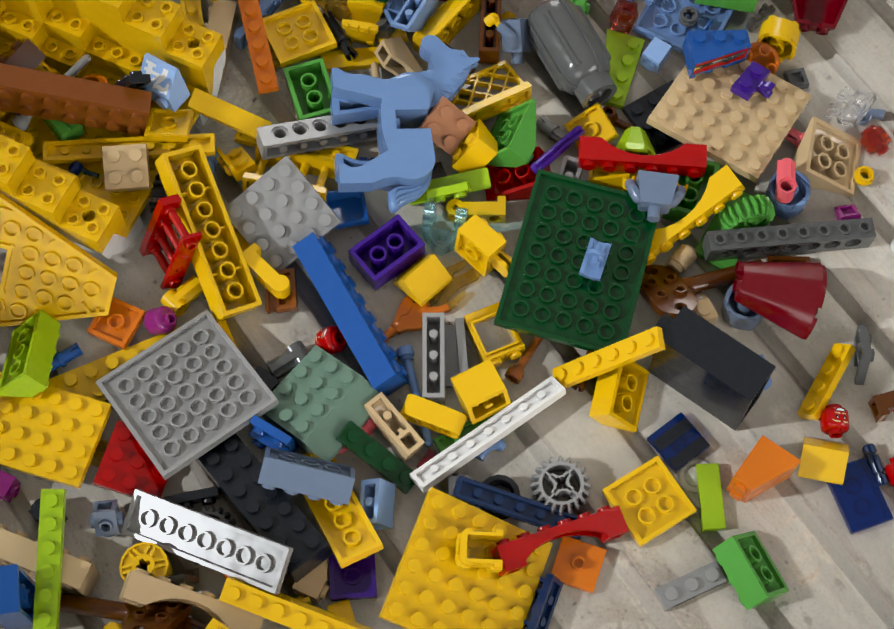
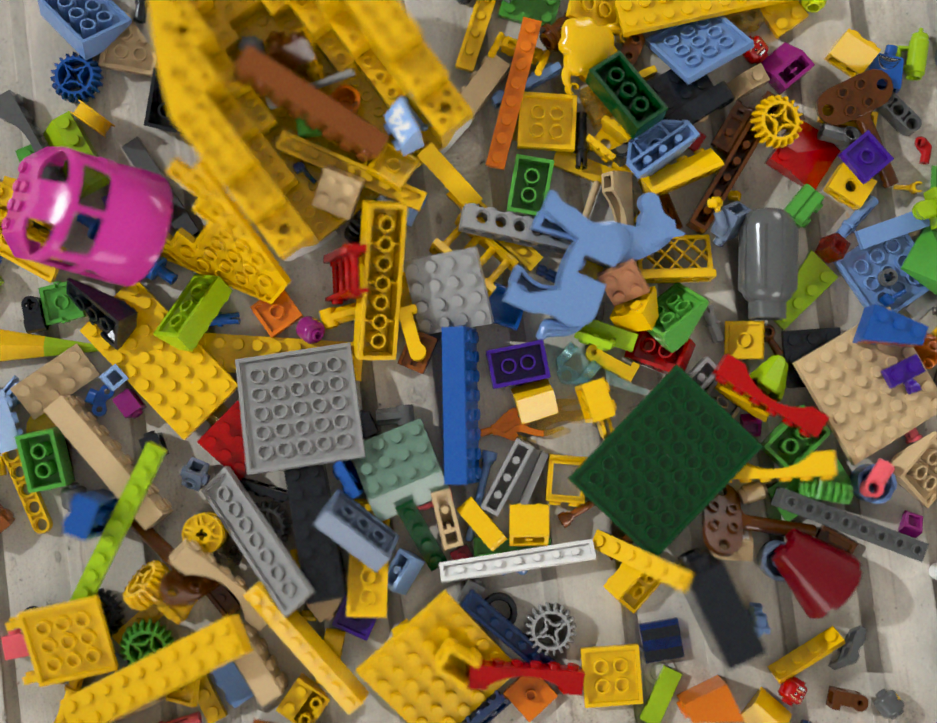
camera: 30 degrees right, 20 degrees up
(134, 80) = (375, 117): black plate -> none
(236, 162) = (437, 220): yellow bracket -> none
(330, 340) = (433, 417): red head -> none
(559, 148) = (704, 349): dark purple axle -> none
(594, 259) = (677, 473): medium blue hips -> none
(654, 192) = (760, 438): sand blue torso -> none
(655, 55) = (838, 297): light blue brick -> none

